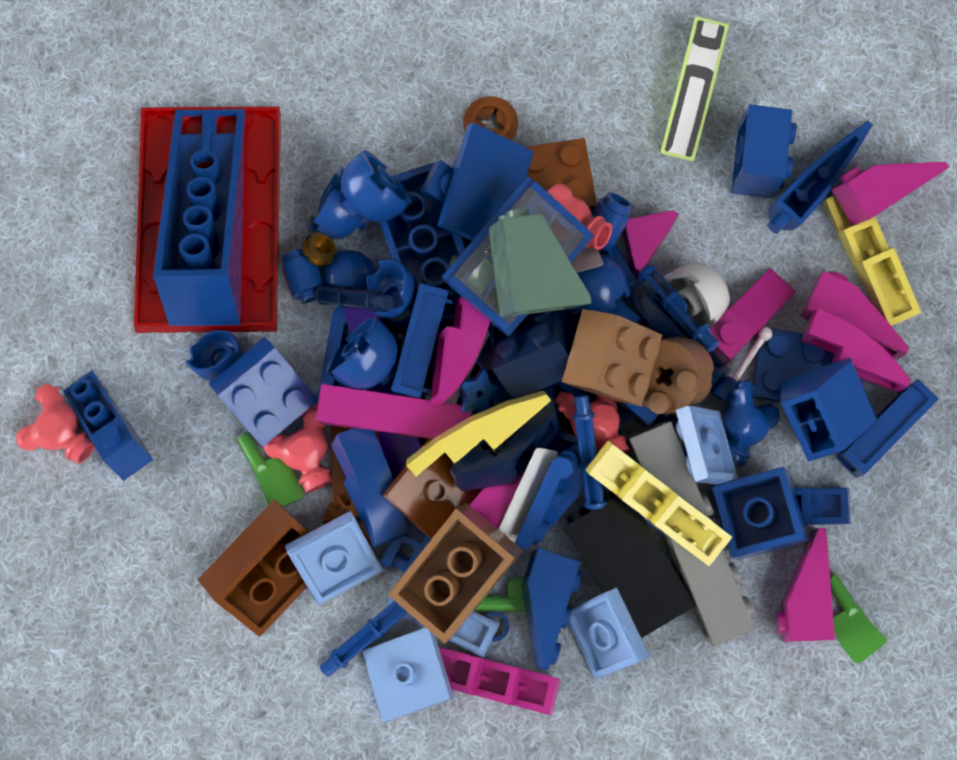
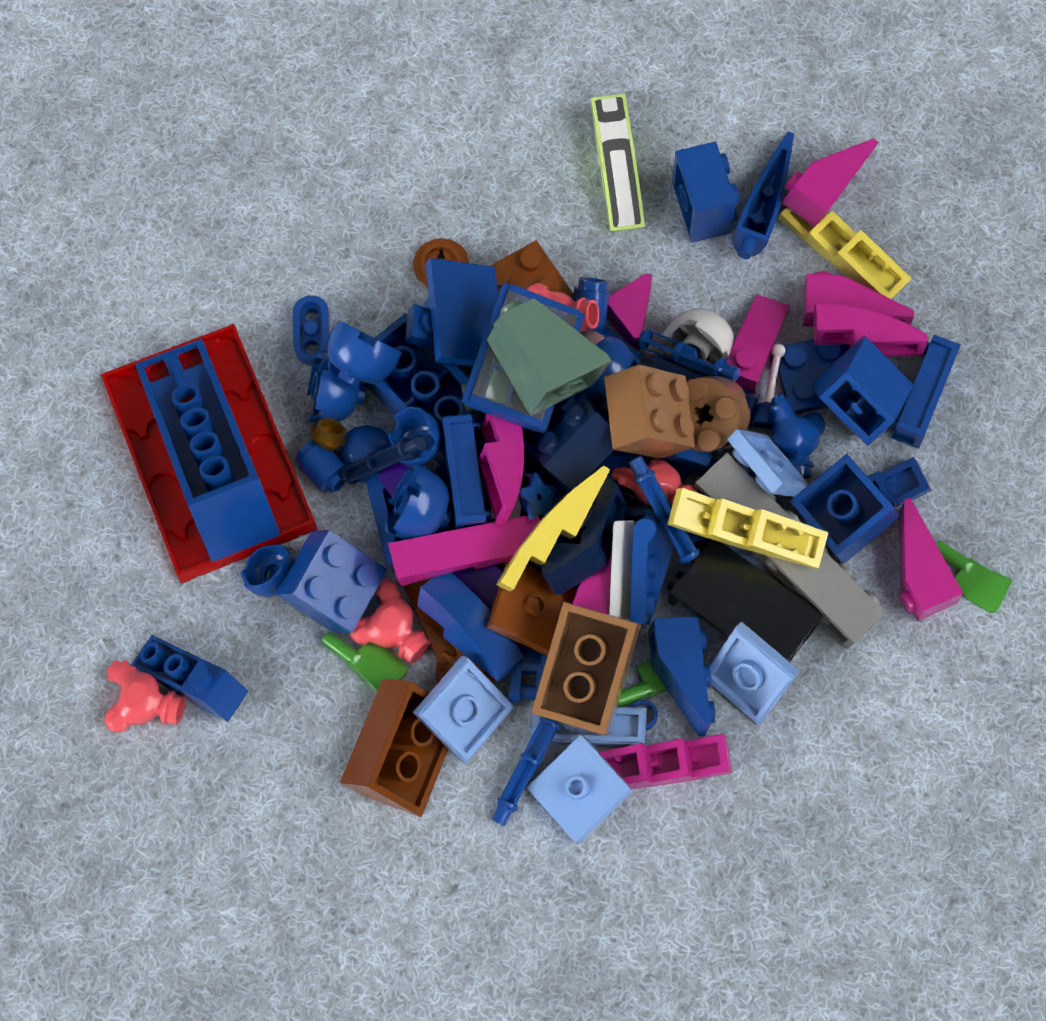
camera: 20 degrees left, 10 degrees down
(344, 141) = (310, 332): none -> blue plate

